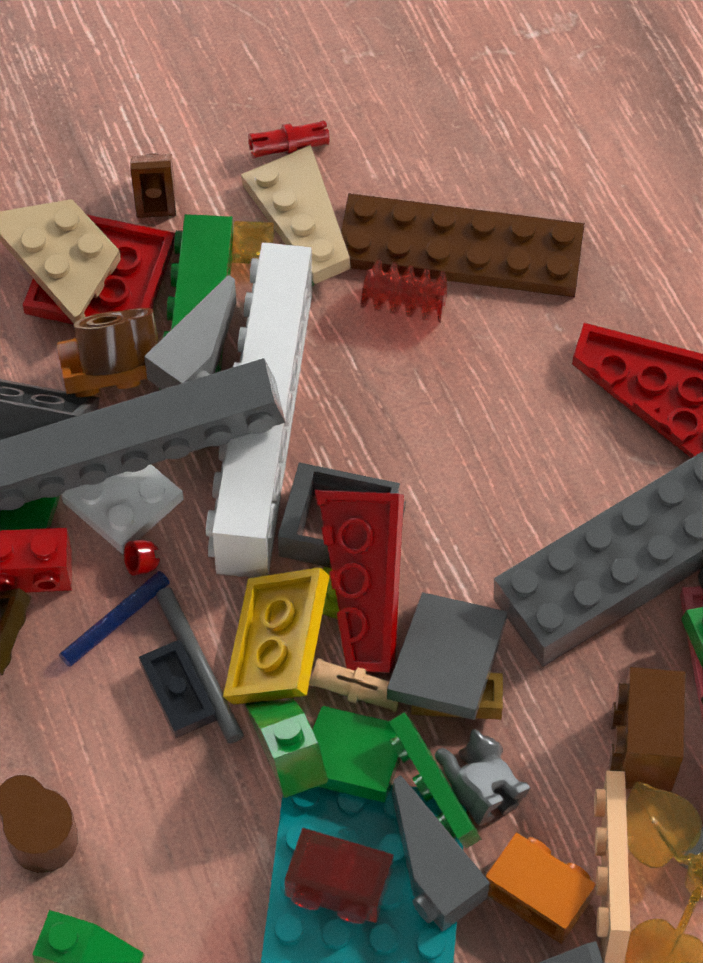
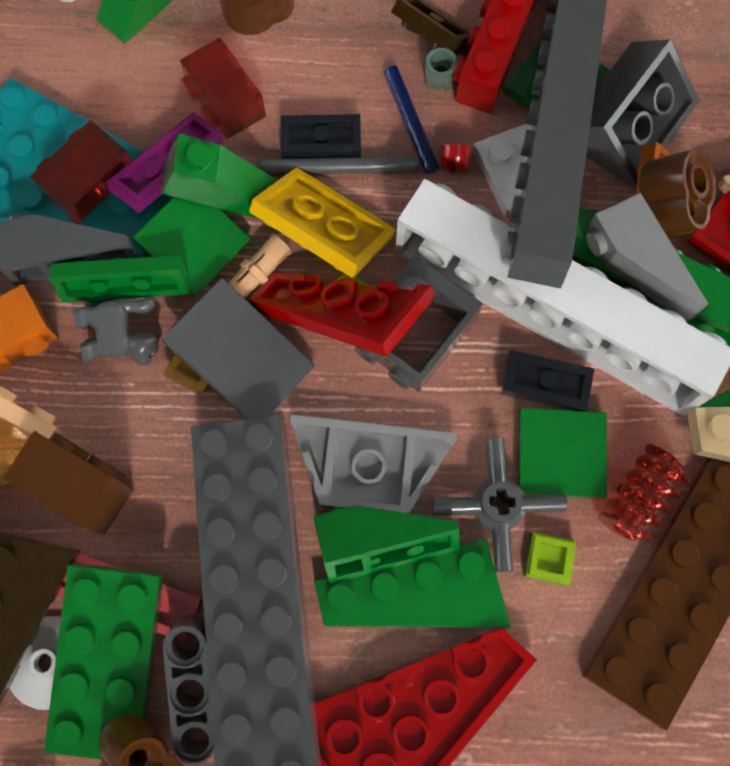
camera: 115 degrees right, 15 degrees up
(47, 597) = (440, 68): none -> sand green hose
(166, 806) = (222, 88): none -> clear red brick
(267, 813) = (143, 177): none -> magenta tile
(339, 400) = (547, 381): none -> black plate
(397, 369) = (562, 453): none -> green tile
(471, 395) = (489, 515): none -> dark grey bar
(490, 510) = (369, 461): none -> light grey wing
(494, 348) = (550, 559): none -> lime tile
(558, 476) = (373, 539): none -> green slope
(575, 431) = (431, 592): none -> green wing

